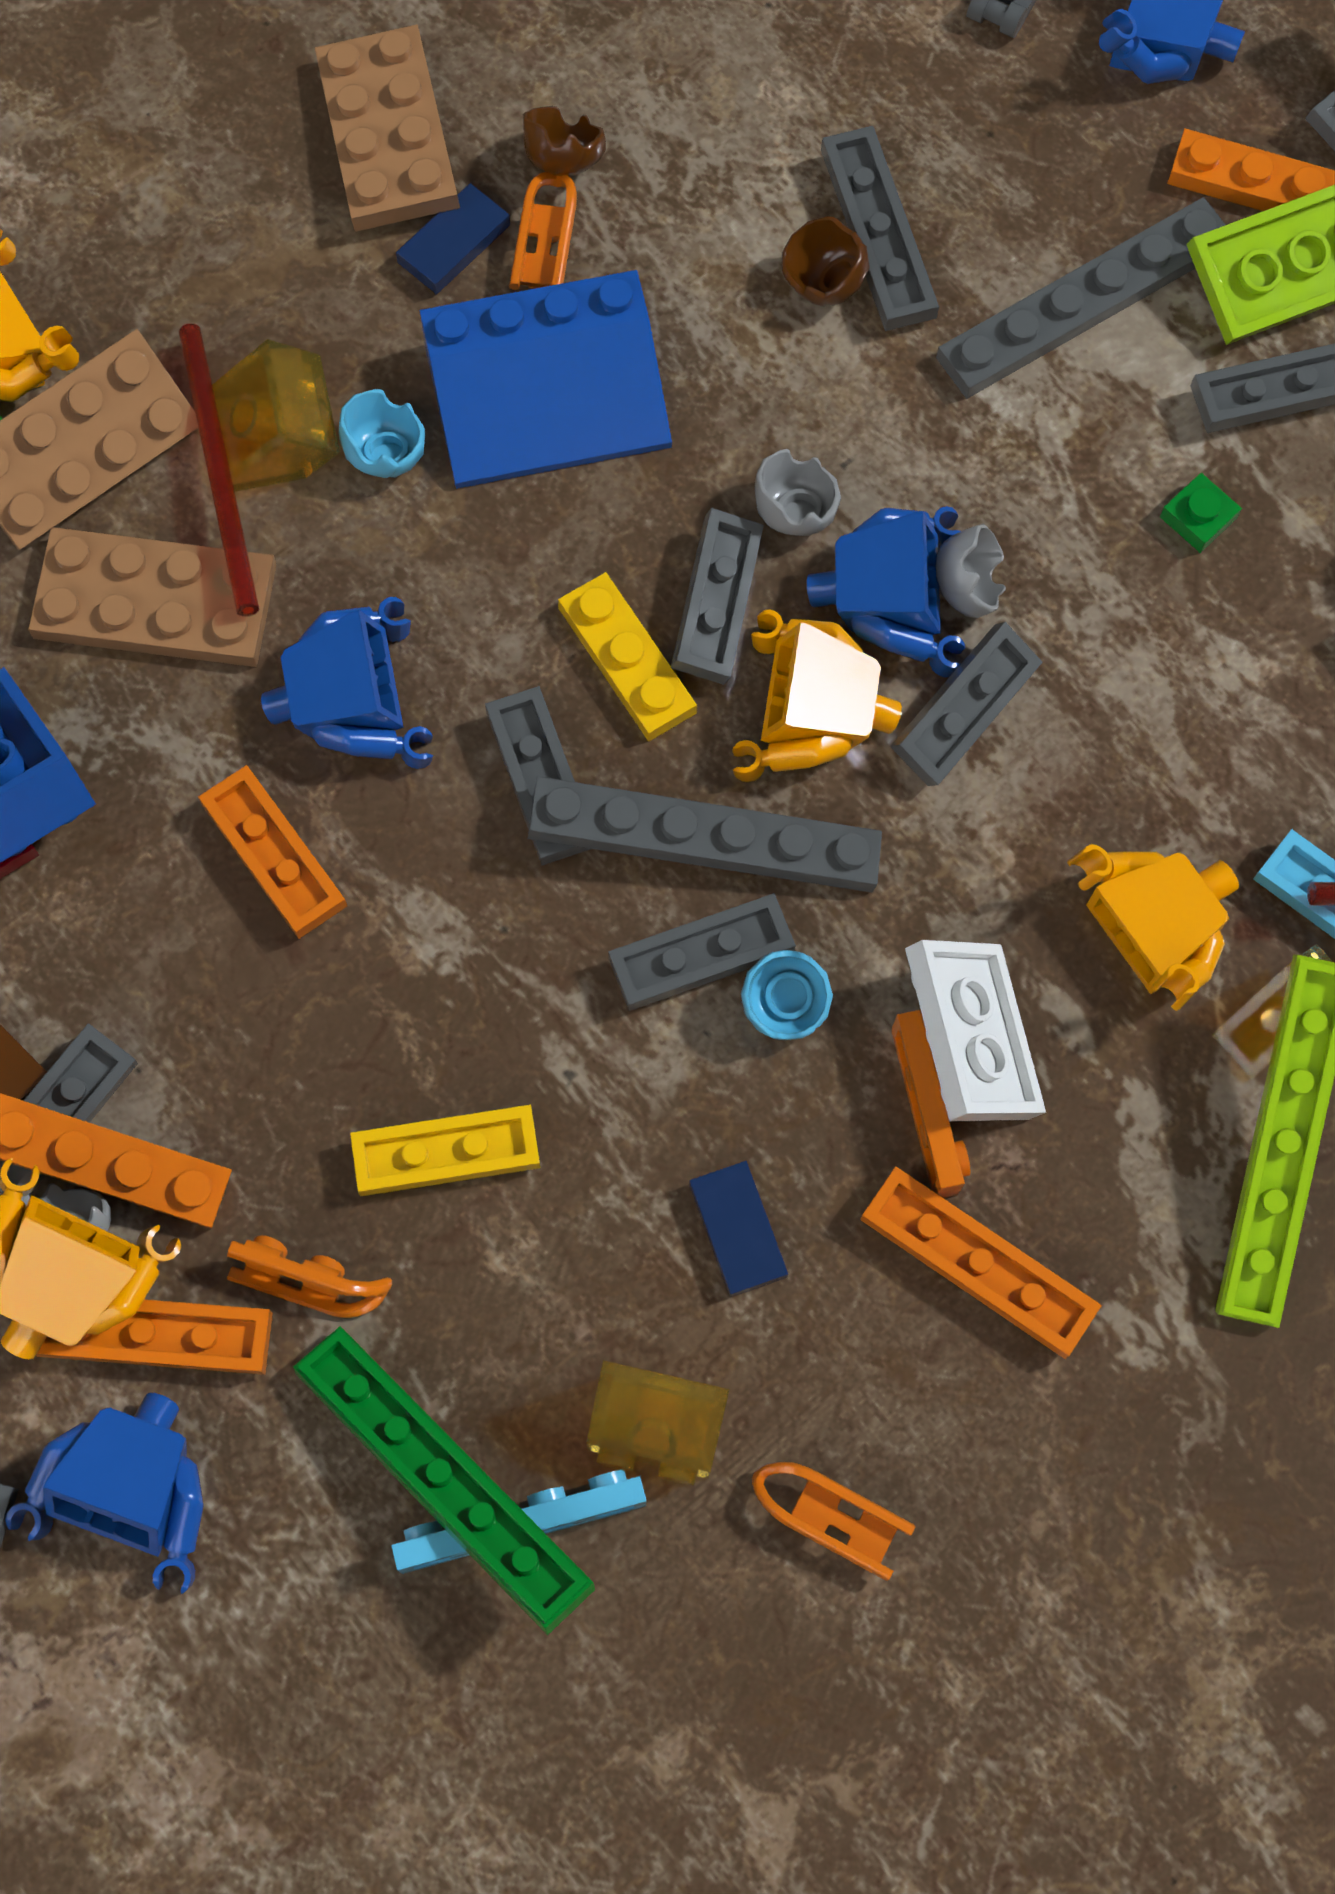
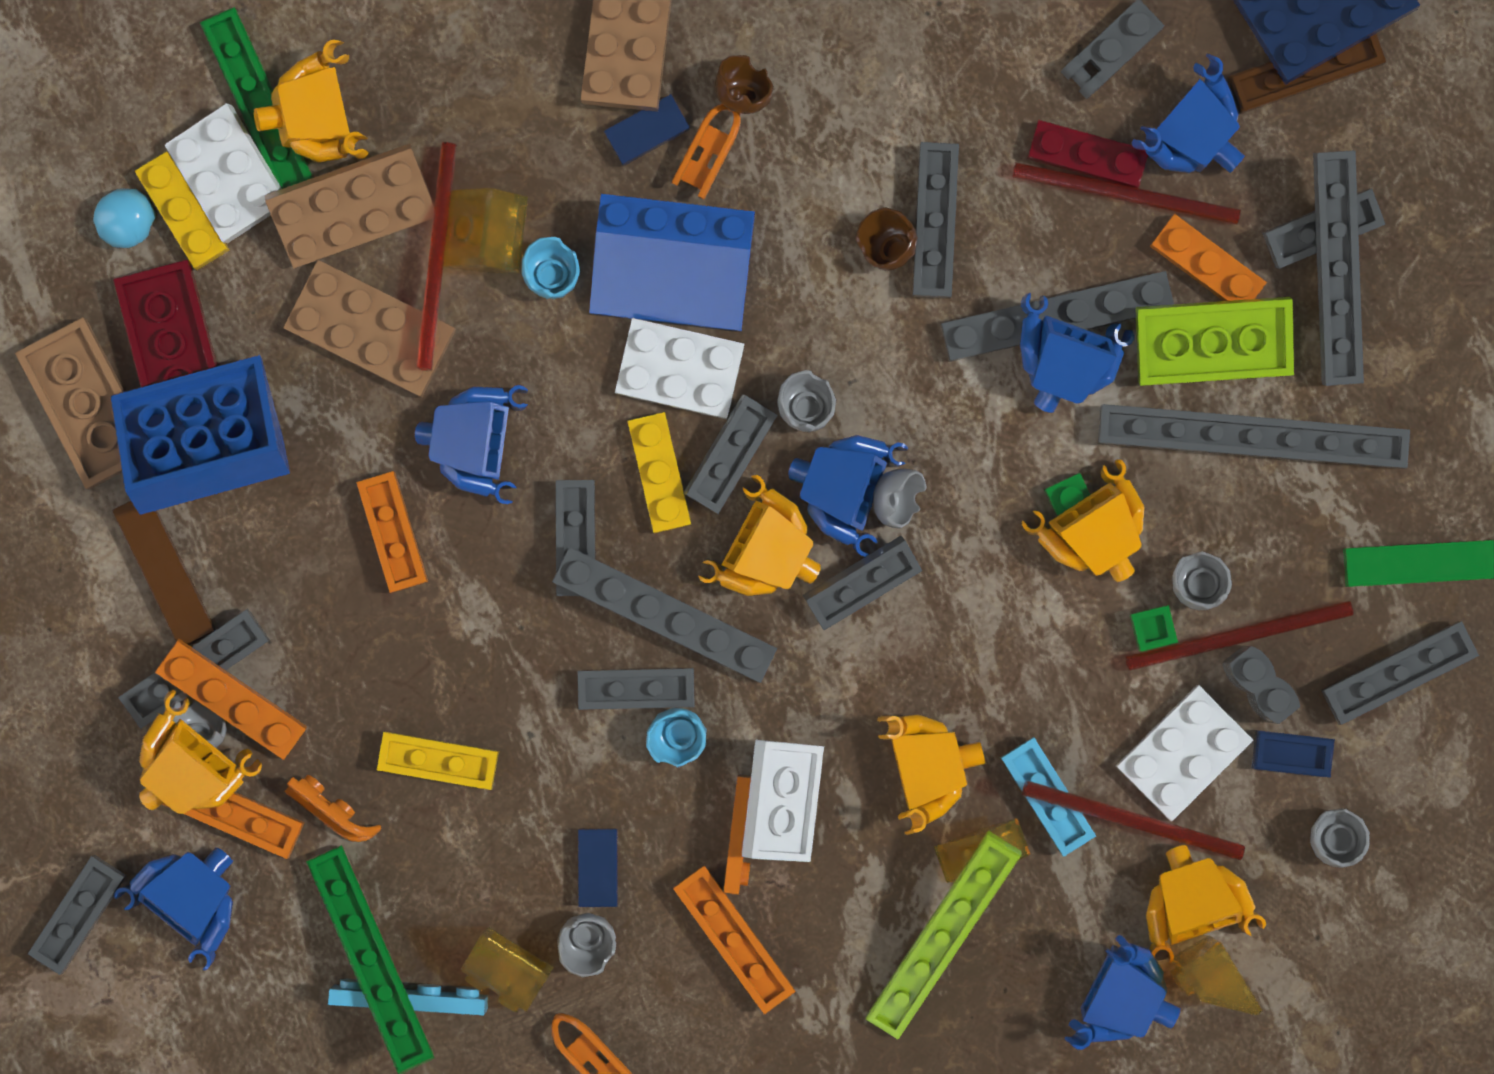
camera: 25 degrees right, 15 degrees up
(606, 515) = (679, 368): none -> white plate
(763, 1341) = (586, 944): none -> light grey hair
(1042, 98) = (1087, 154): none -> dark red plate
(1110, 128) = (1126, 193): none -> clear red piece
(1121, 327) = (1066, 358): none -> blue torso
(1257, 531) = (1097, 530): none -> light orange torso

